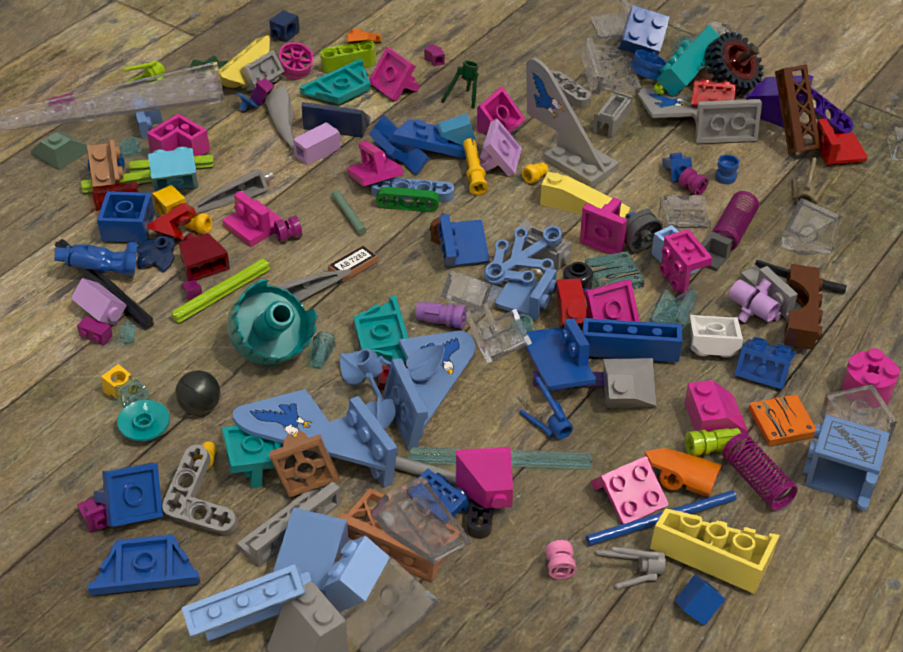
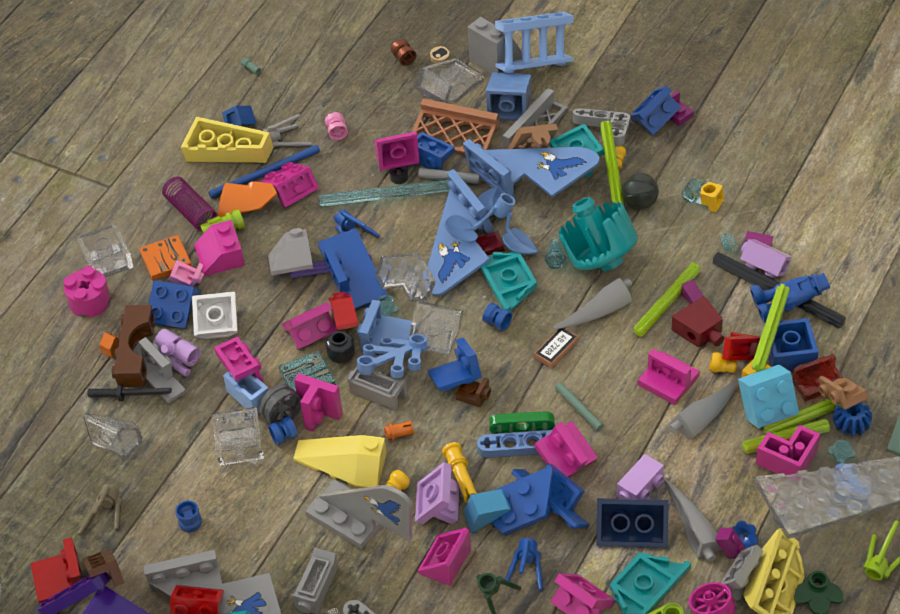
camera: 175 degrees right, 5 degrees up
(138, 209) = (770, 328): none -> lime axle
(143, 420) = (674, 170): teal dish -> none
(144, 565) = (624, 82): blue wing -> none
(156, 251) = (747, 324): dark blue plate -> none
(218, 421) = (611, 162): none -> lime axle
(288, 228) = (627, 368): magenta wheel -> none
(355, 573) = (473, 77): light blue slope -> none
(404, 290) = (497, 316): none -> blue wheel
(420, 521) = (438, 116): clear slope -> none
(430, 112) = (526, 553): none -> blue plant
(442, 314) = (462, 300): medium lavender axle -> none
(526, 211) = (398, 430): none -> orange pin
(633, 339) = (288, 291): blue brick -> none
(672, 309) = (252, 329): clear light blue bracket -> none
(677, 164) = (242, 517): blue bracket -> none
(691, 180) = (226, 493): magenta wheel -> none
(718, 248) = (204, 410): dark grey panel -> none
(746, 217) = (196, 427): magenta piece -> none
(753, 386) = (185, 274): none -> bright pink bracket
(831, 326) = (108, 344): none -> orange piece
(845, 459) = (126, 206): medium blue container -> none

